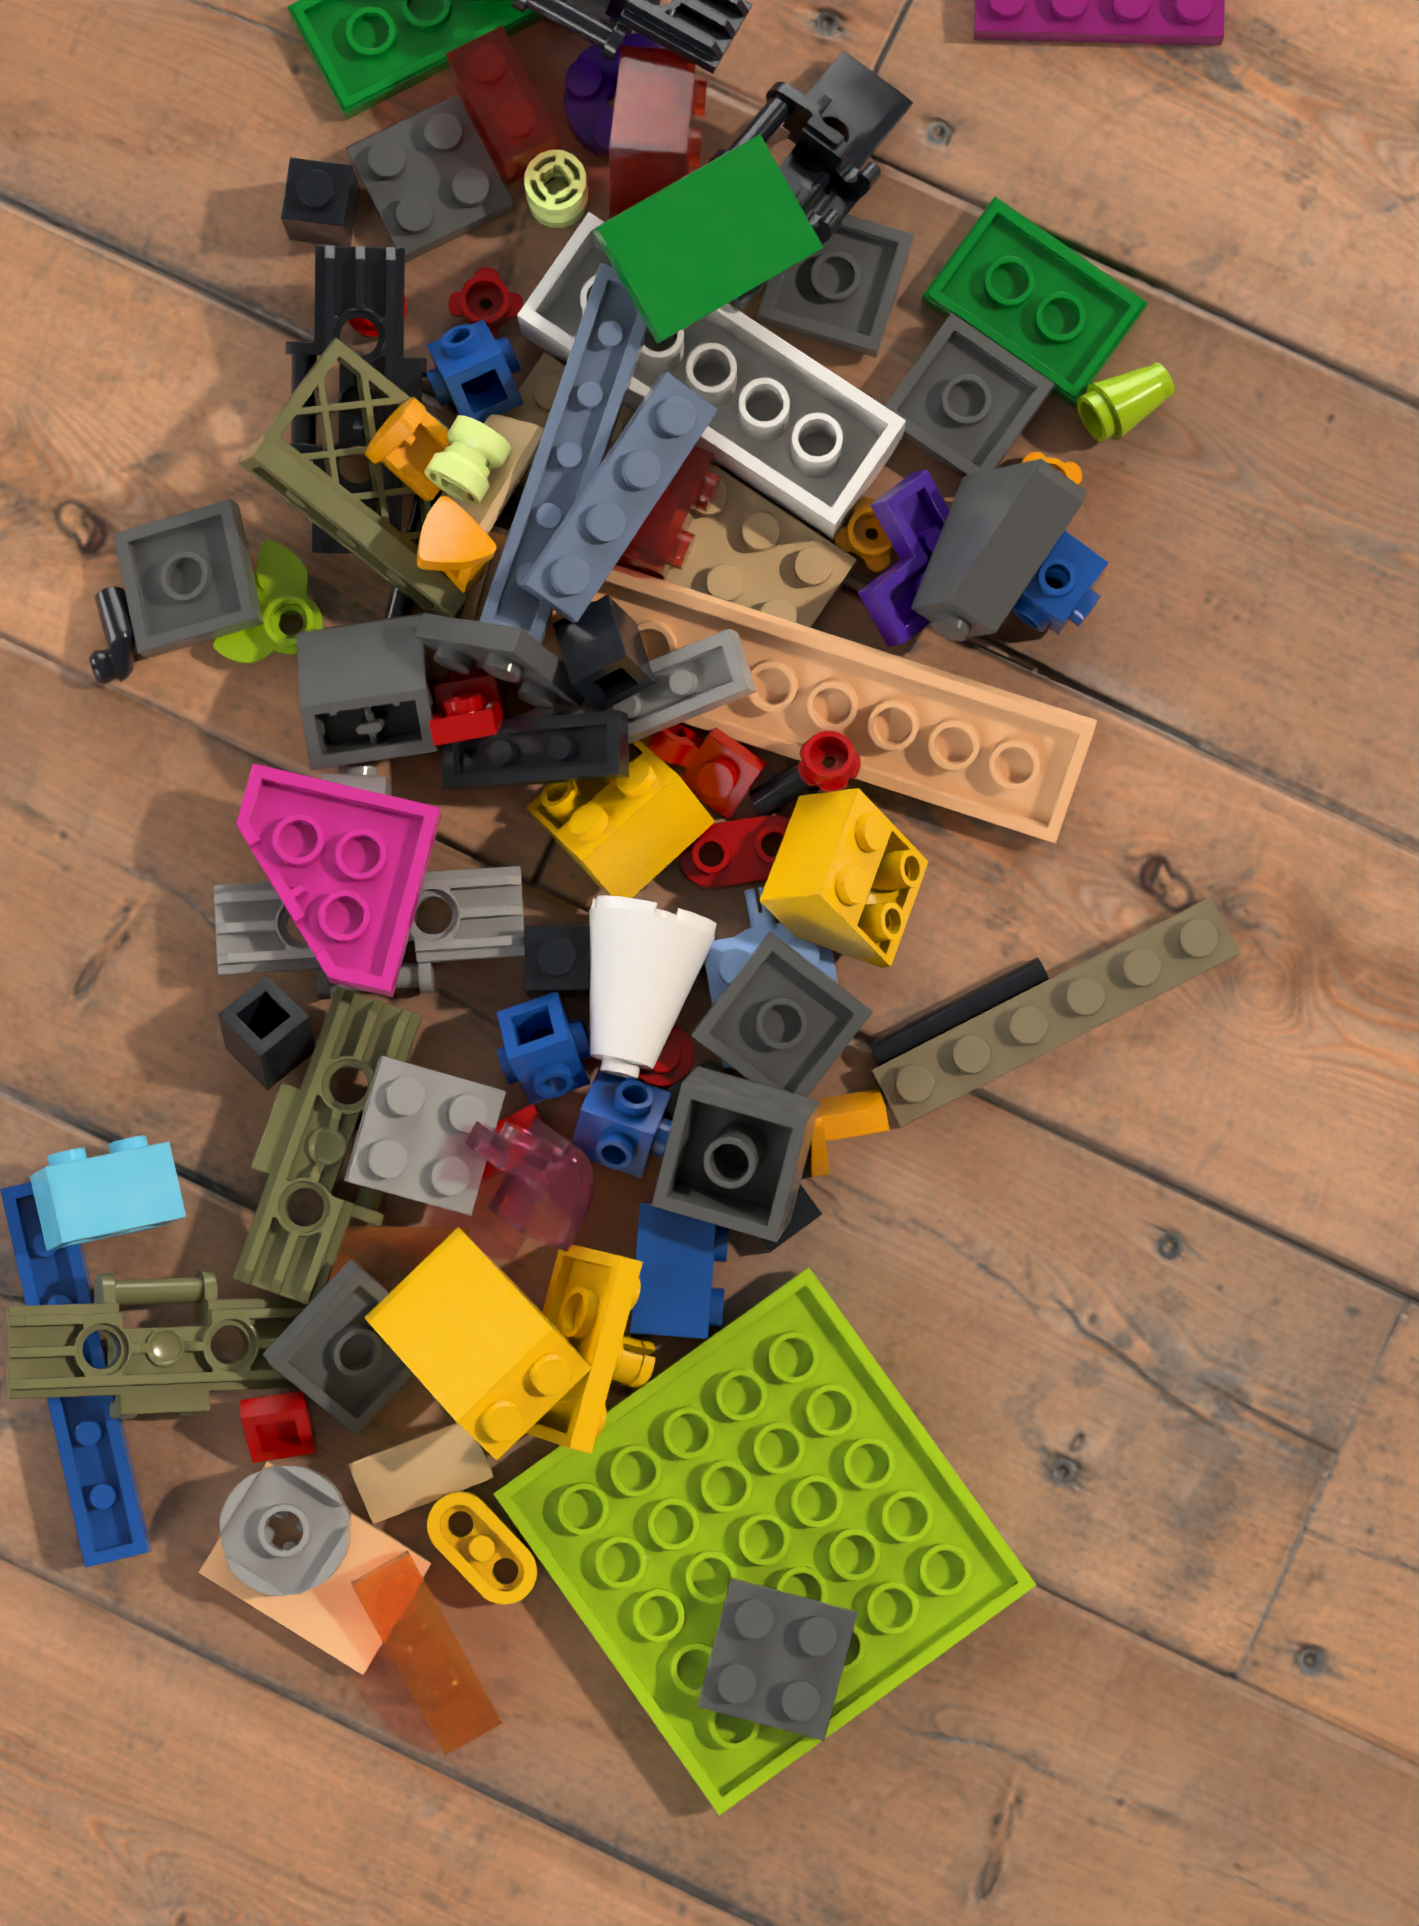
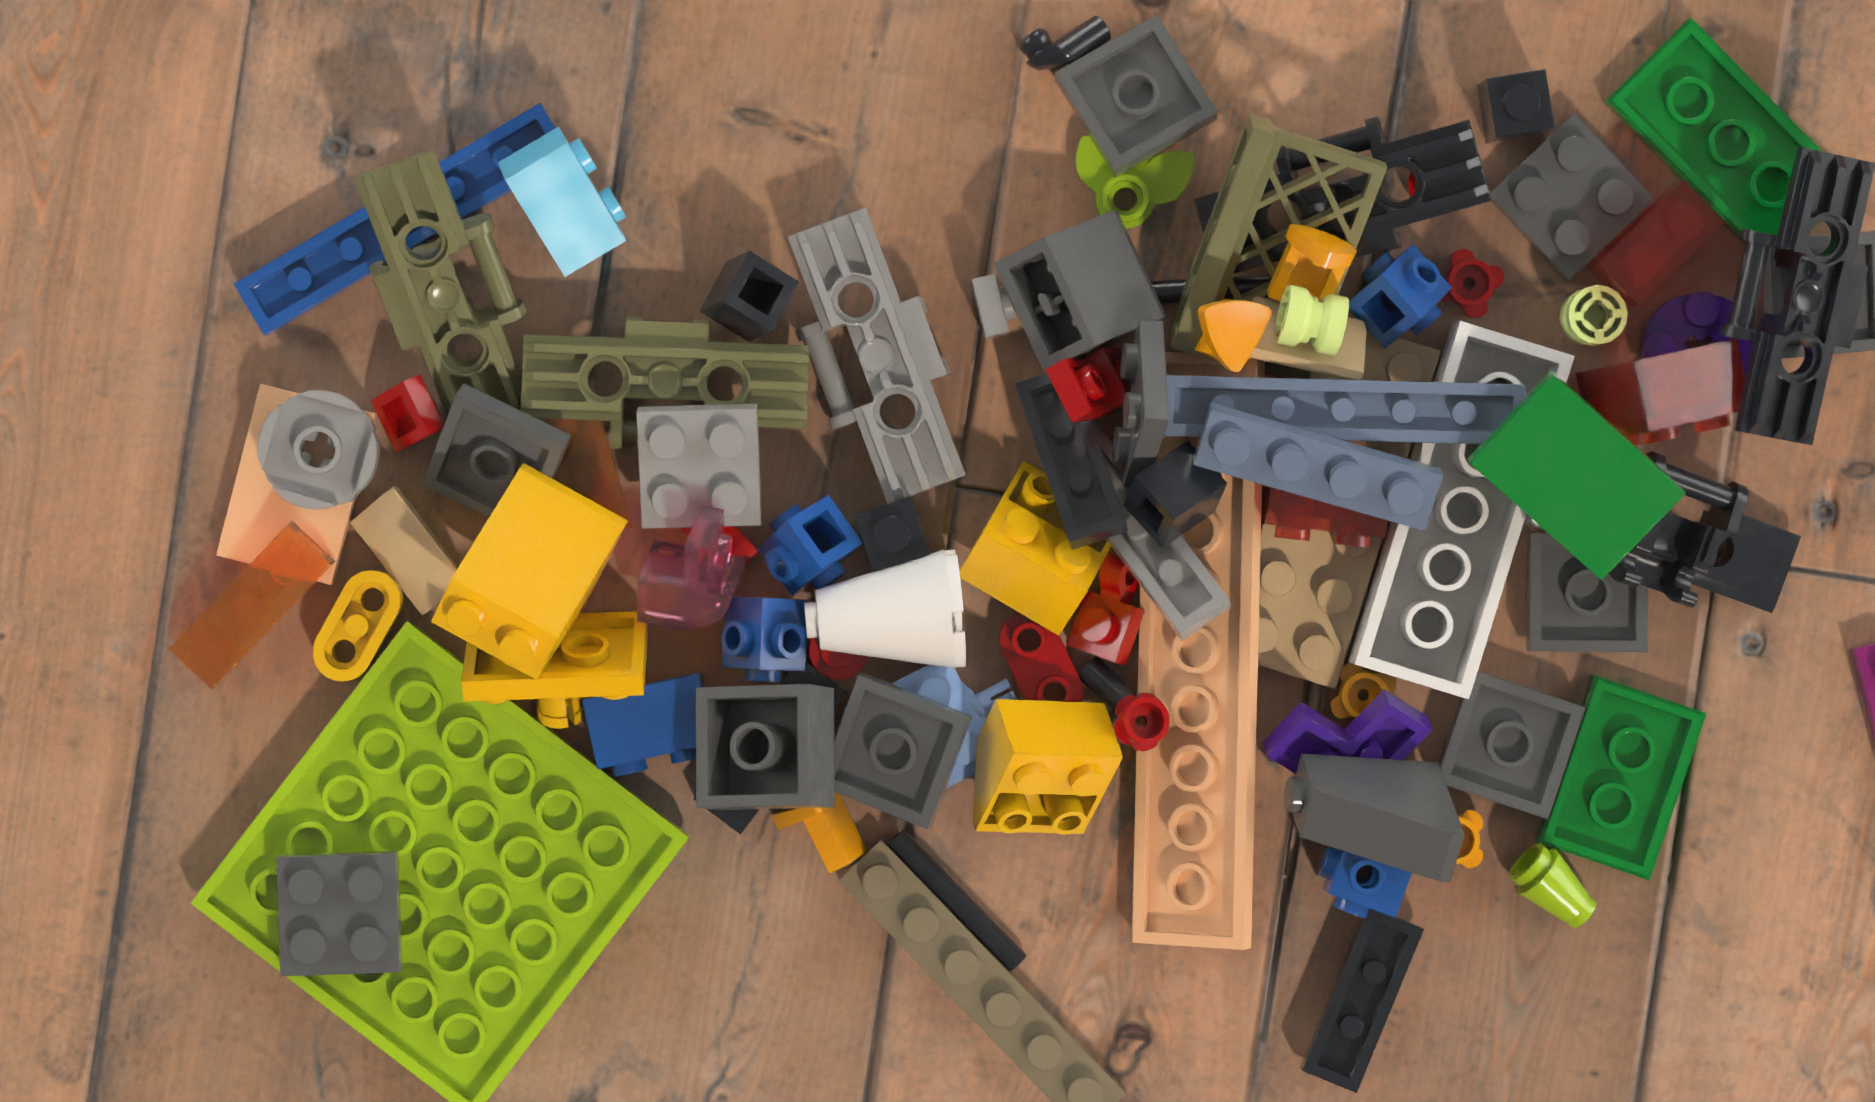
camera: 65 degrees right, 5 degrees up
(342, 867) = (913, 320): dark pink plate -> none
(1183, 627) = (1361, 999): none -> black plate

